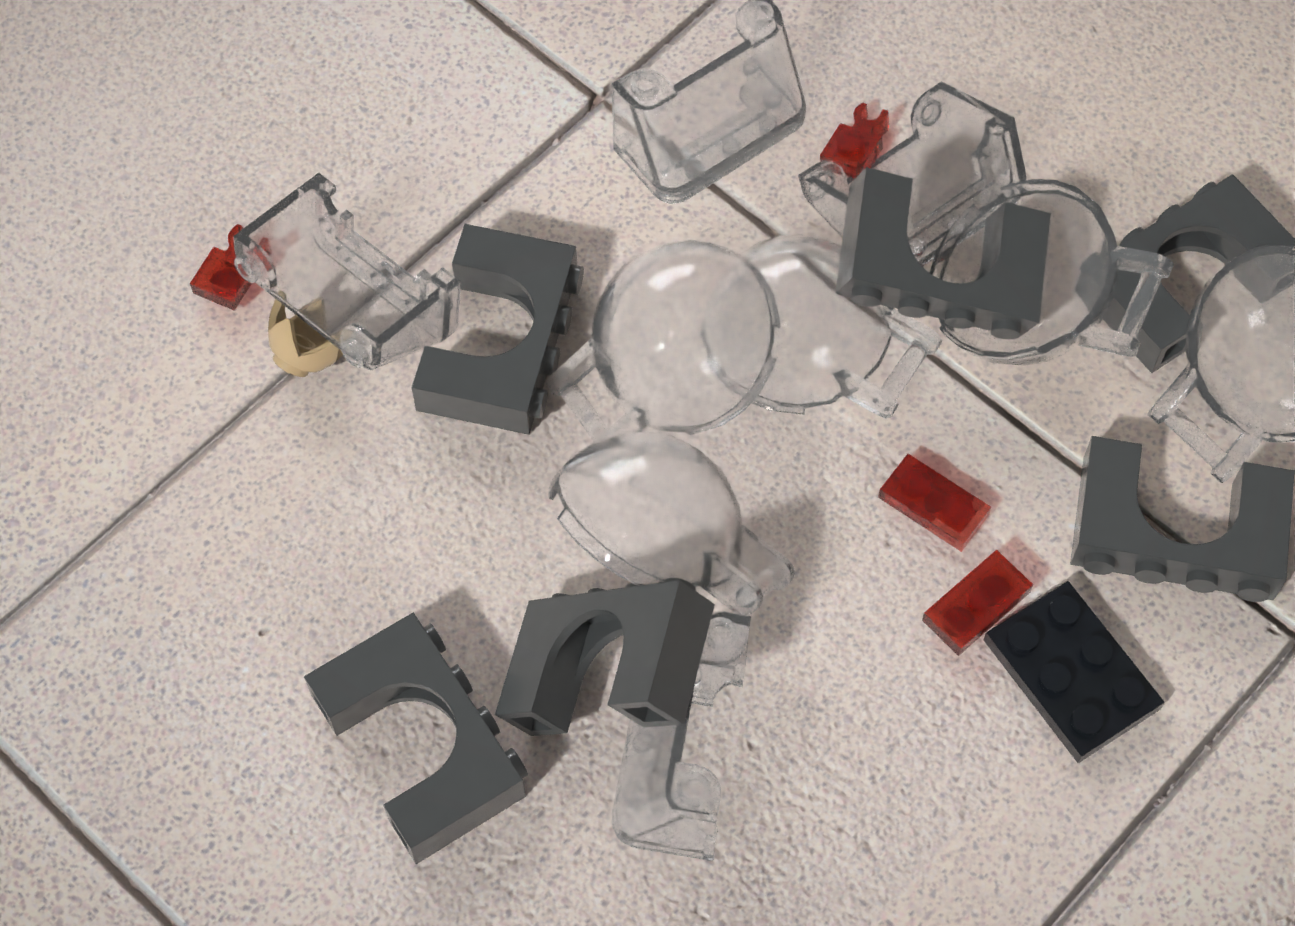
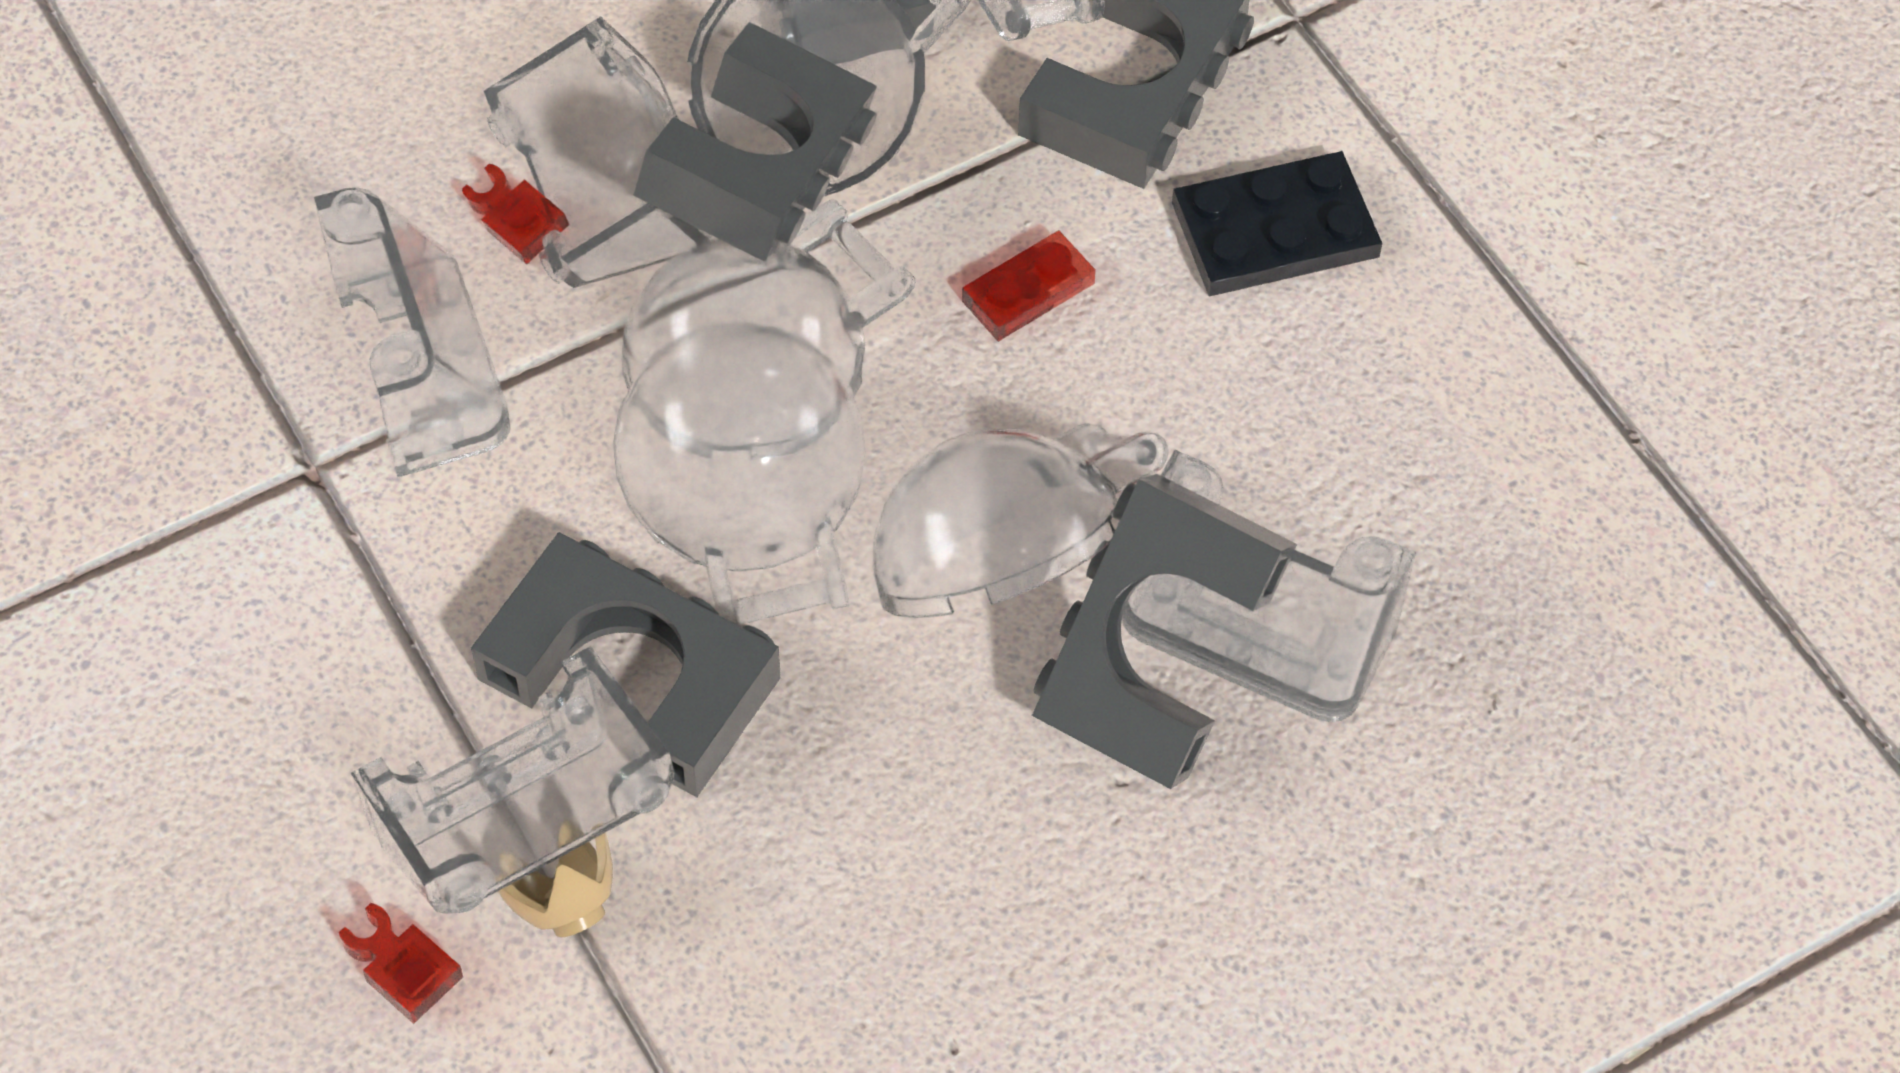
camera: 75 degrees left, 5 degrees down
(408, 666) = (1228, 829): dark grey arch -> none
(977, 602) = (1172, 279): clear red plate -> none

